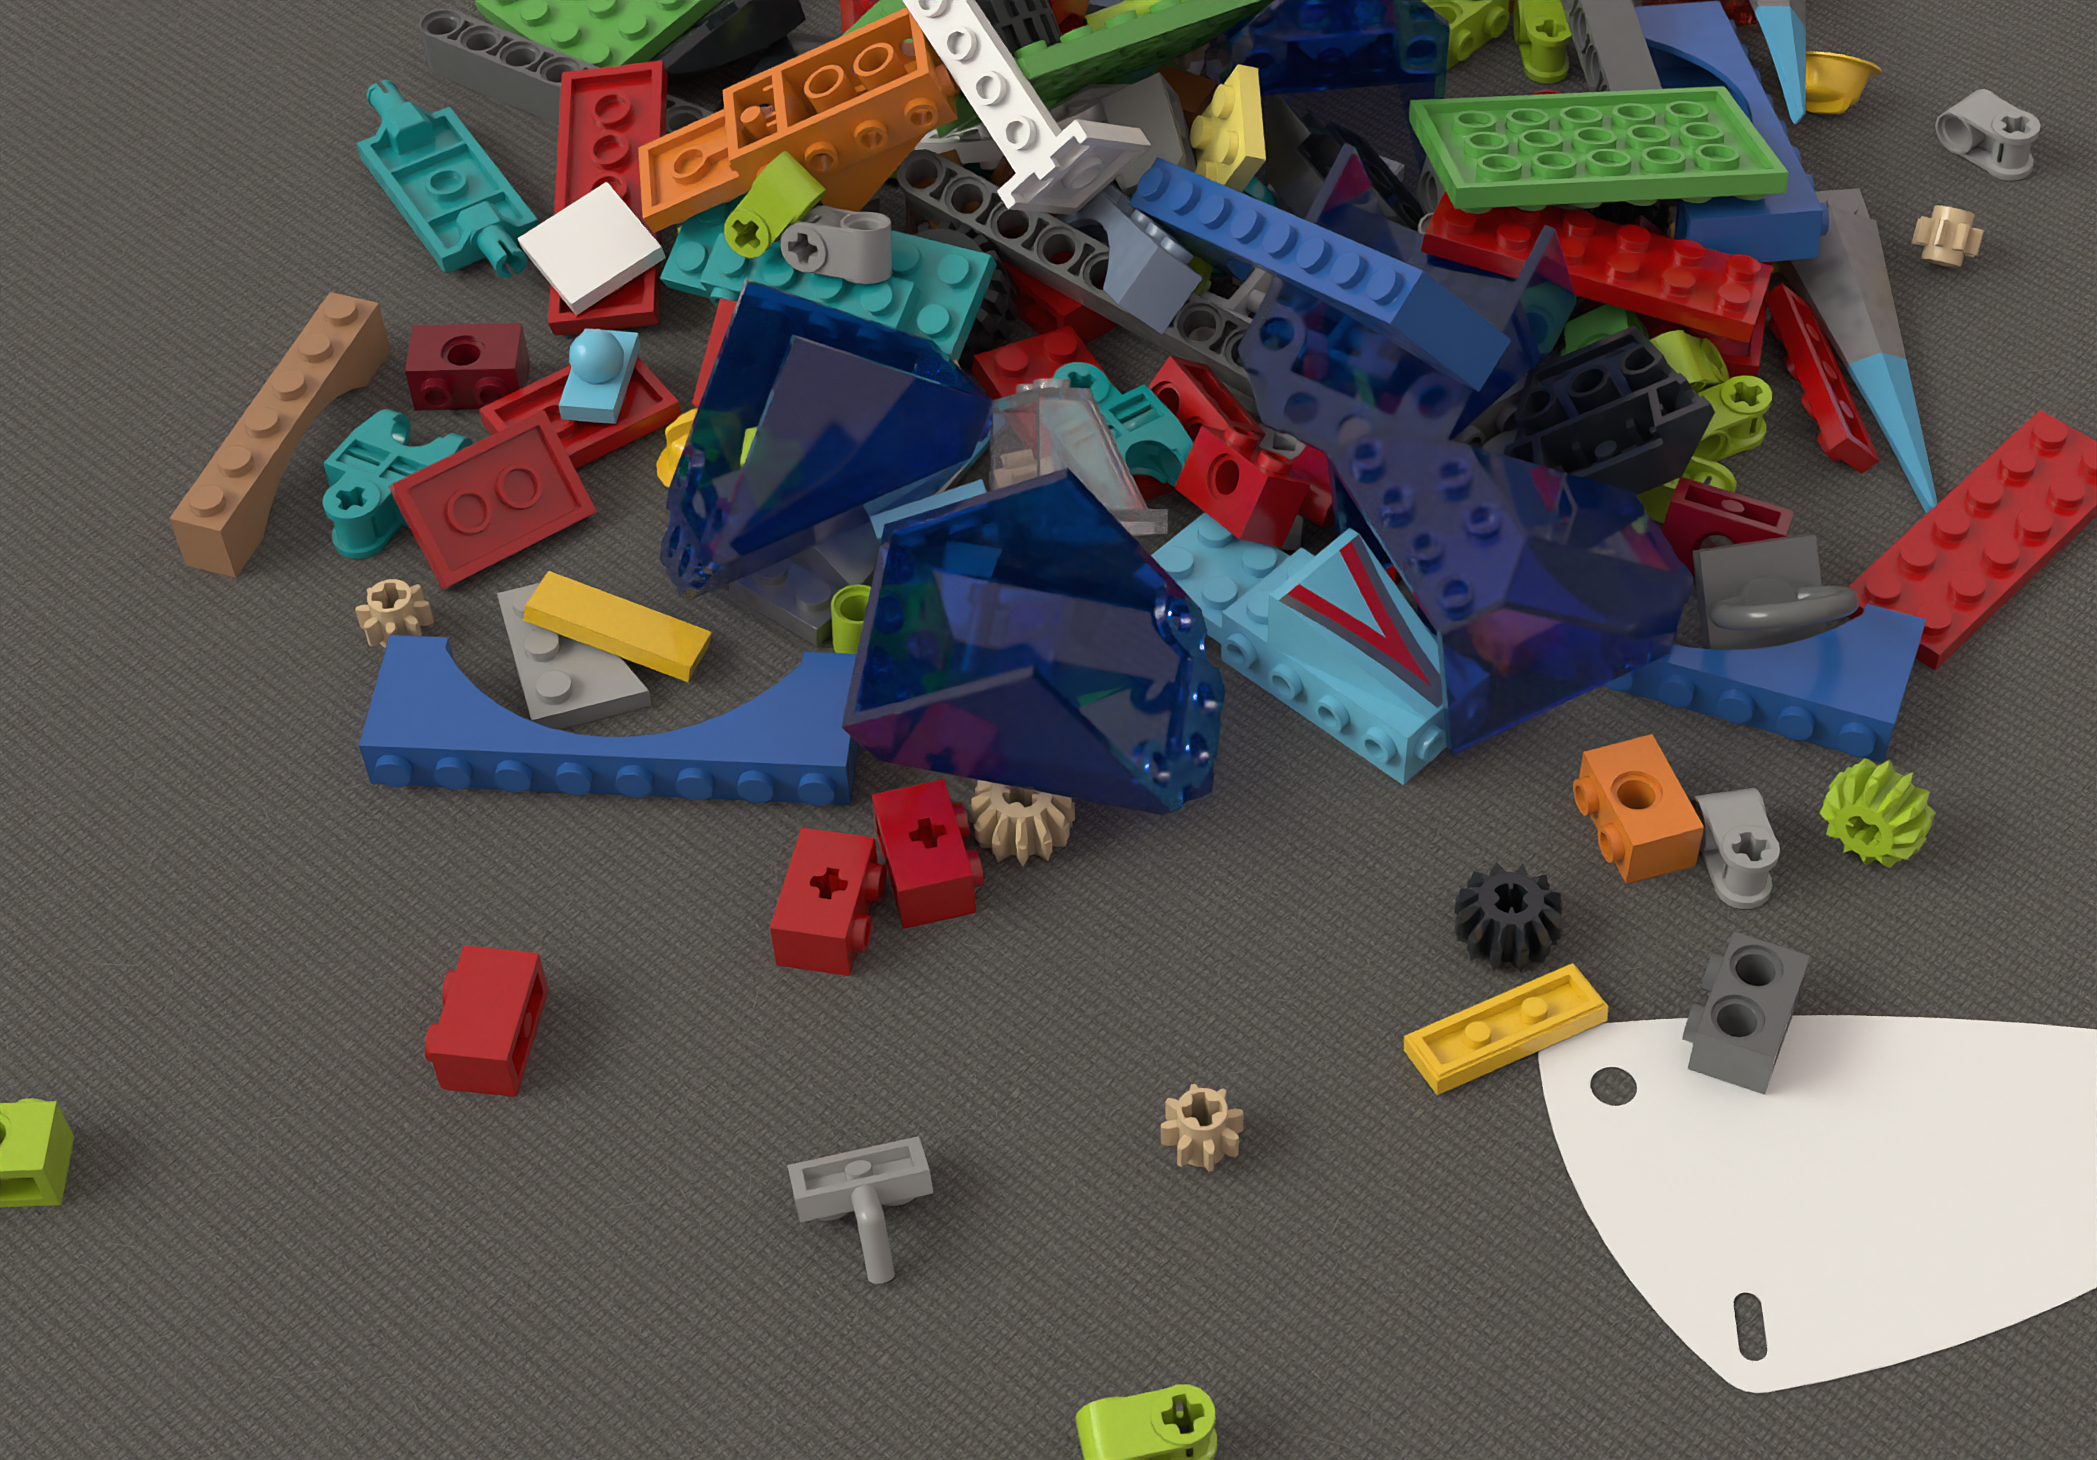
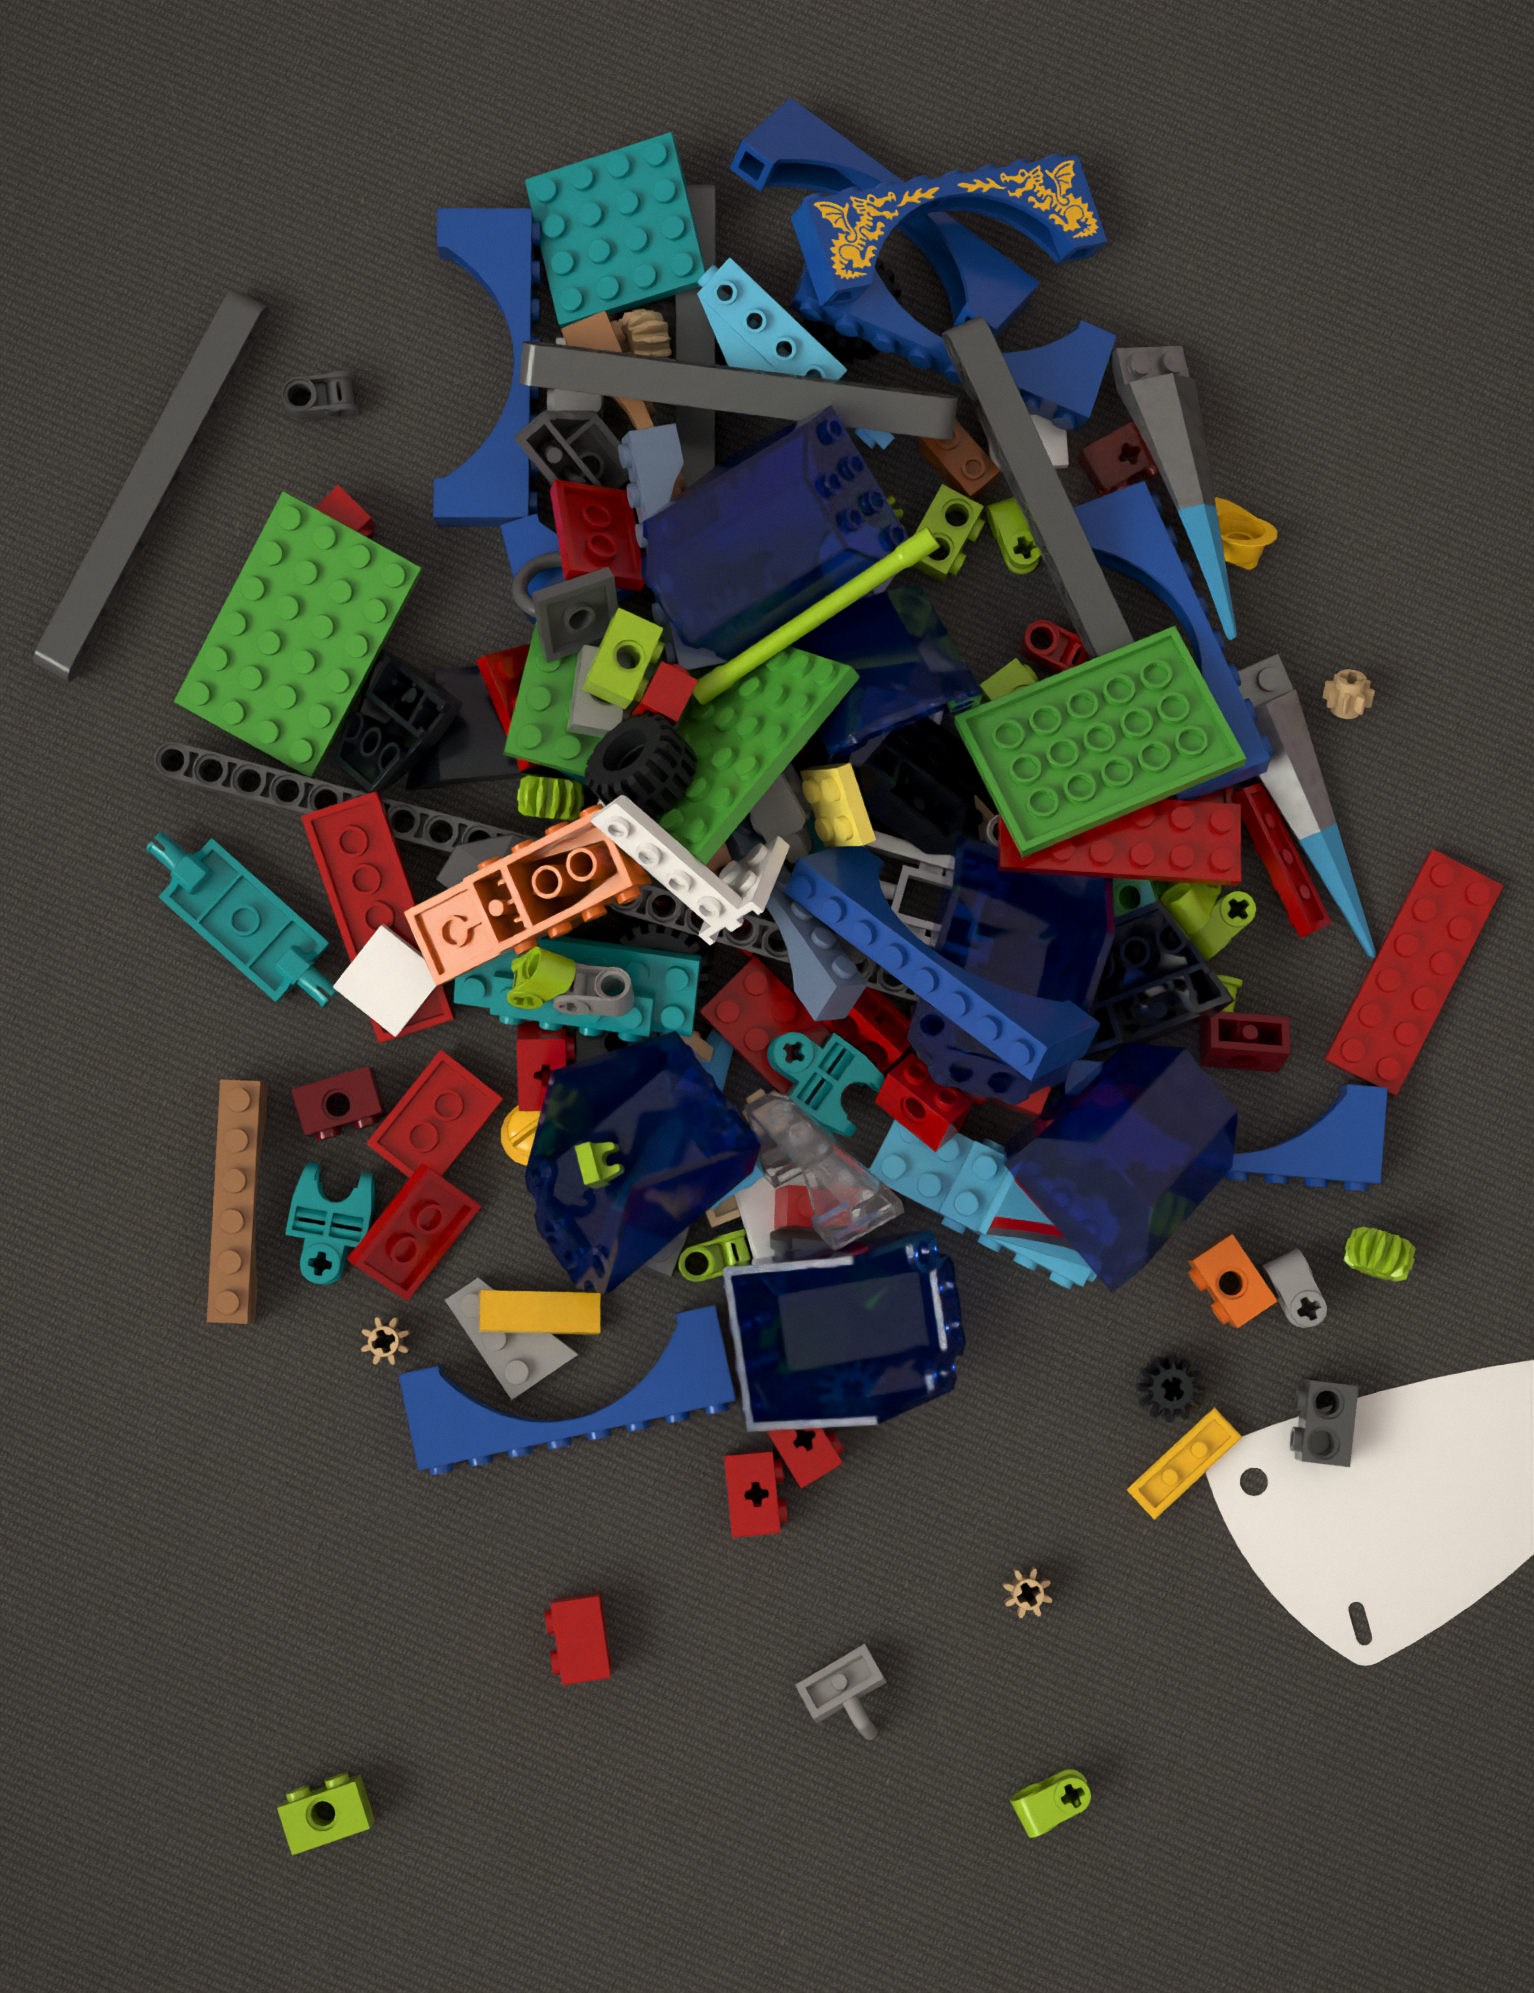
camera: 20 degrees left, 35 degrees up
(599, 375) = (441, 1096): medium azure tile -> none
(1765, 593) = (1284, 1097): dark grey tile -> none
(1987, 129) = (1358, 562): light grey piece -> none

